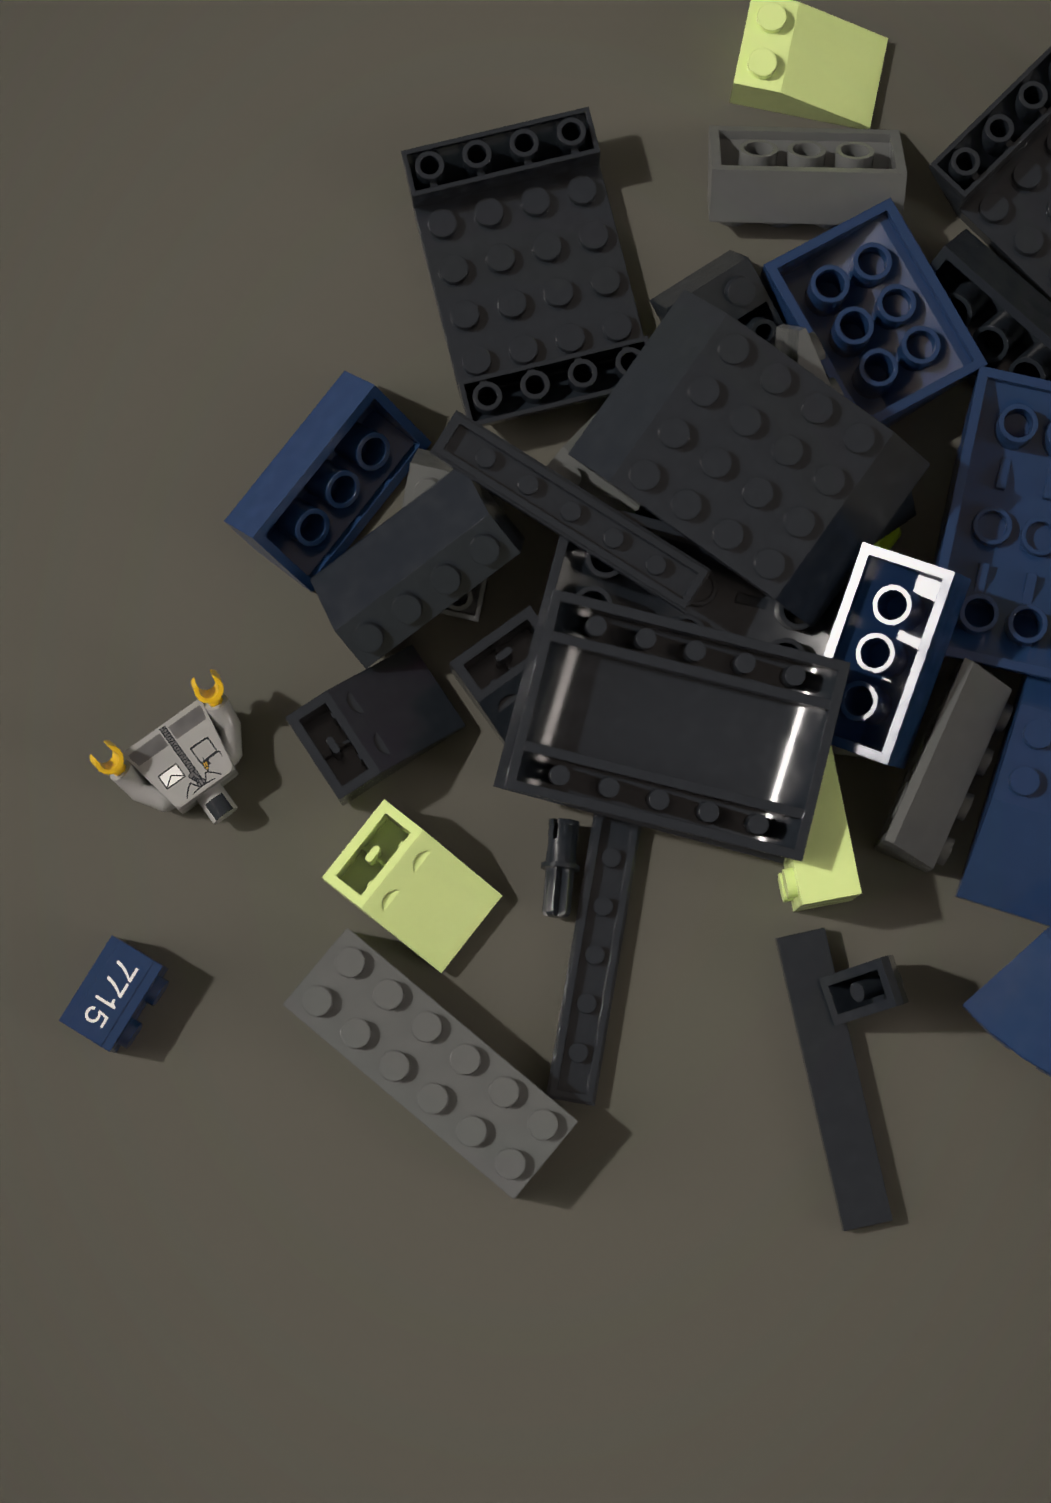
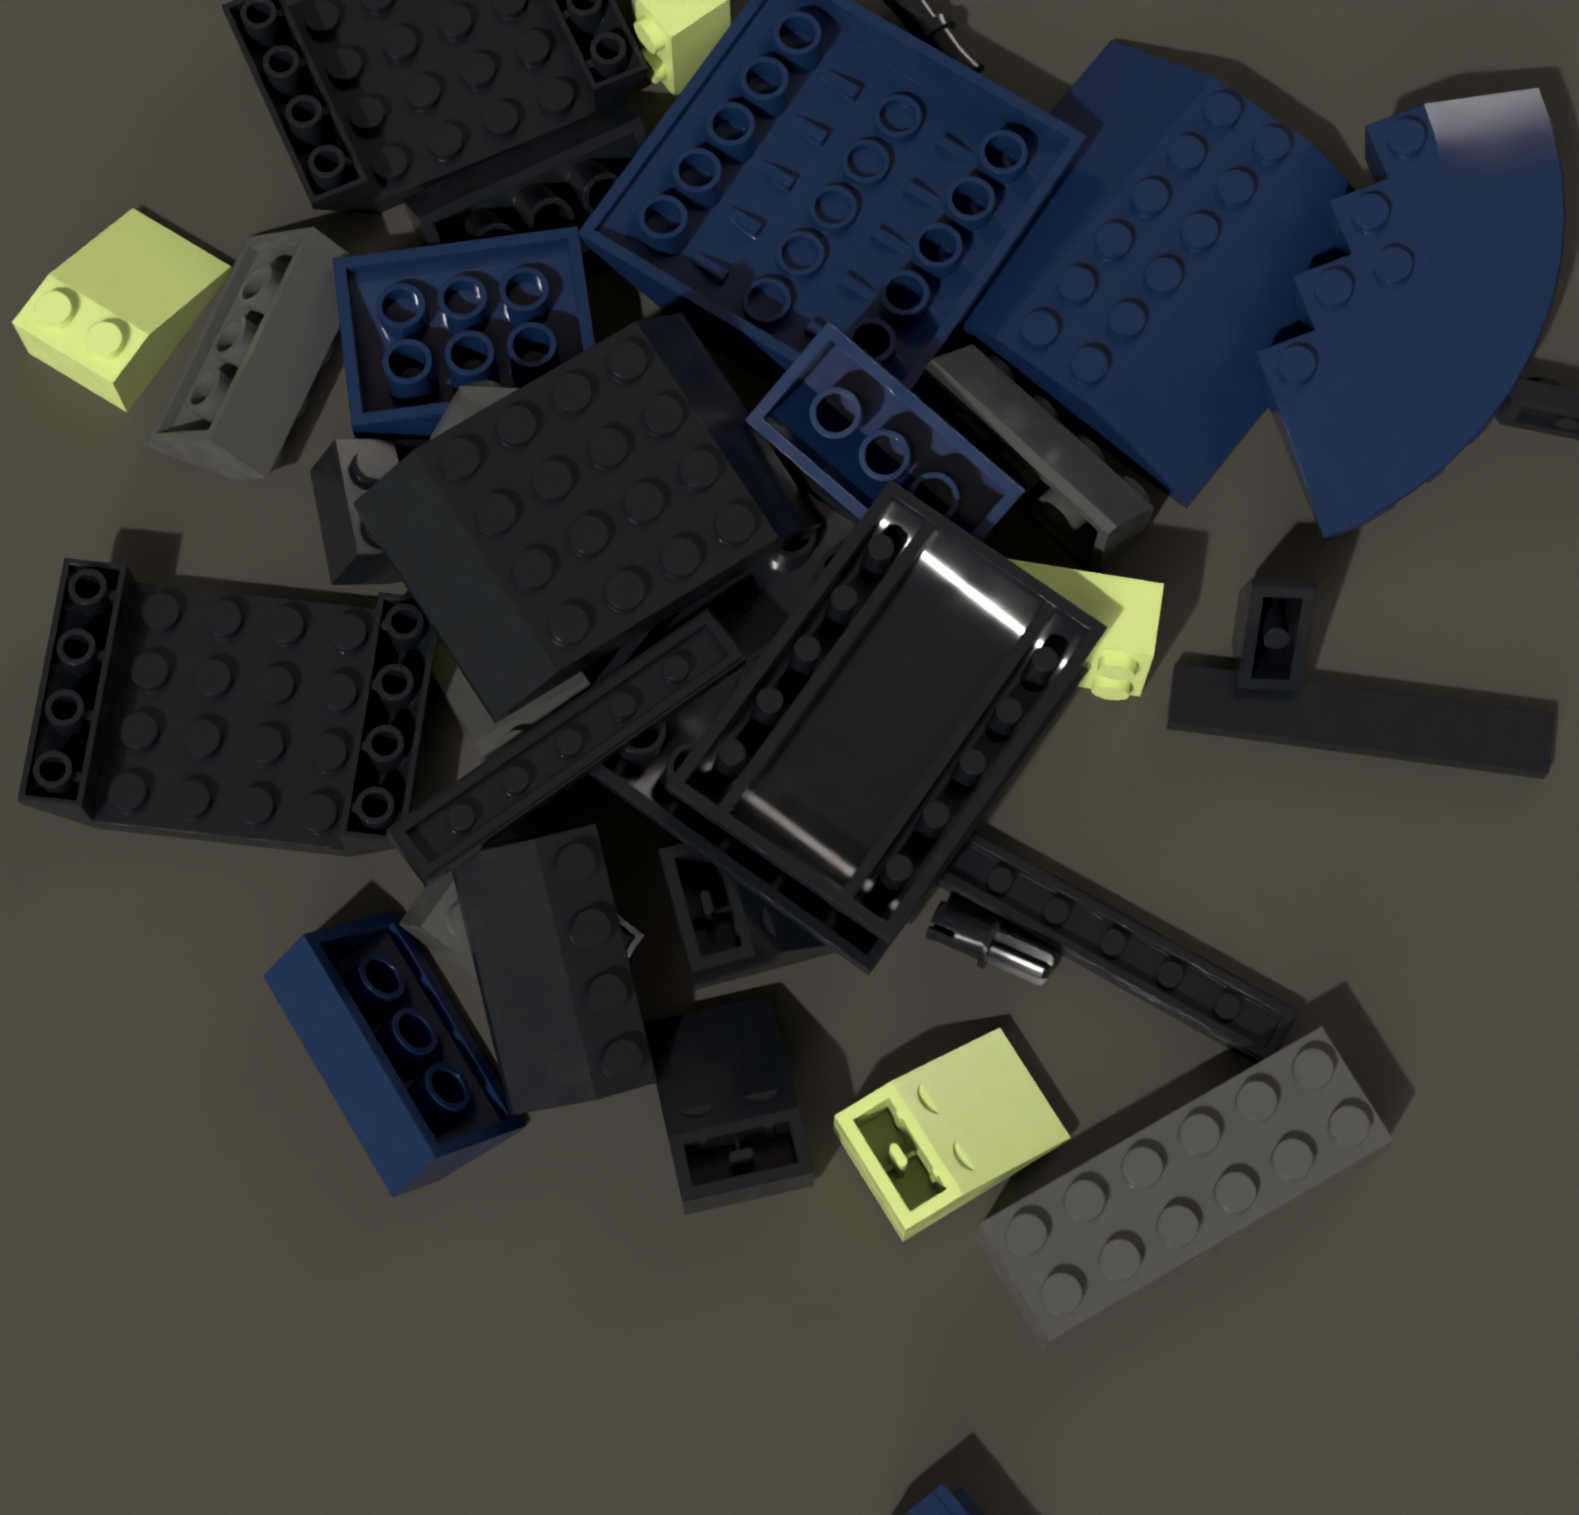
camera: 70 degrees left, 10 degrees down
(184, 758) = (679, 1359): light grey torso -> none

